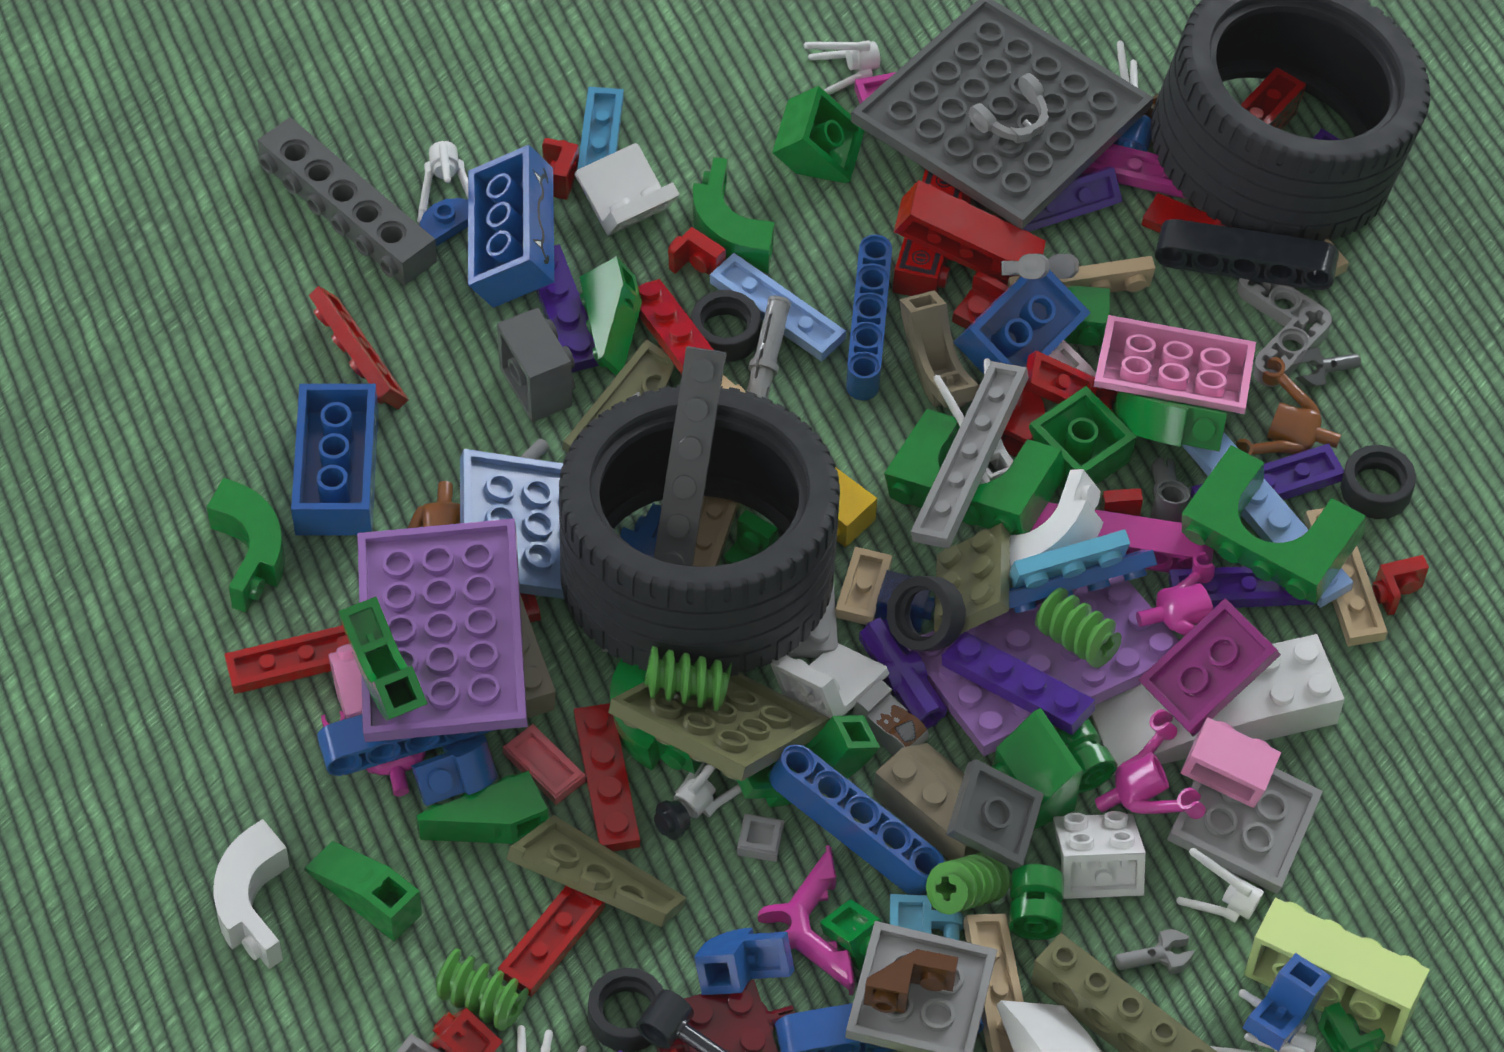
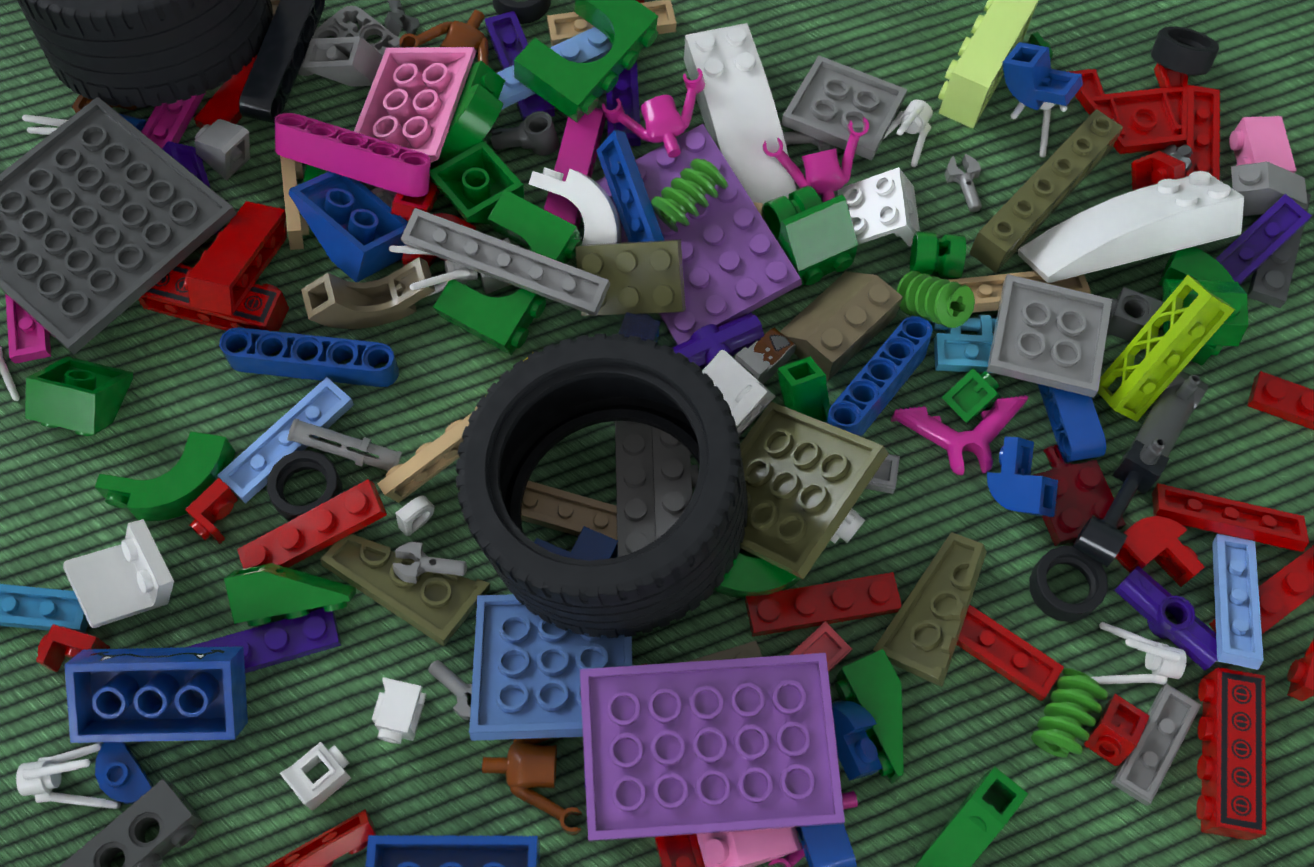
camera: 90 degrees left, 10 degrees up
(379, 660) = (789, 792): green arch -> none
(441, 370) = (315, 794): none -> white window
(497, 414) = (398, 711): none -> white window
(536, 364) = (346, 665): dark grey brick -> none
(672, 819) = (871, 543): black plate -> none
(687, 679) = (769, 504): bright green piece -> none
(689, 456) = (536, 483): dark grey plate -> none
(752, 537) = (574, 467): green bracket -> none
(890, 986) = (1061, 341): reddish brown slope -> none
(952, 617) = (698, 309): black tyre -> none
(983, 293) = (301, 263): red bracket -> none
(995, 814) = (881, 266): dark grey plate -> none
(1018, 682) = (740, 246): dark purple plate -> none
(1034, 93) = (107, 226): light grey piece -> none
(1037, 266) = (306, 189): light grey piece -> none
(1069, 560) = (630, 187): medium azure plate -> none
(1095, 314) = (352, 154): none -> dark pink beam
(1112, 215) = (223, 147): none -> light grey slope
(1122, 501) = (537, 164): red tile -> none
(1209, 667) = (731, 100): magenta plate -> none
(1231, 762) = (814, 99): bright pink piece -> none
(1246, 310) = (343, 60): none -> light grey slope

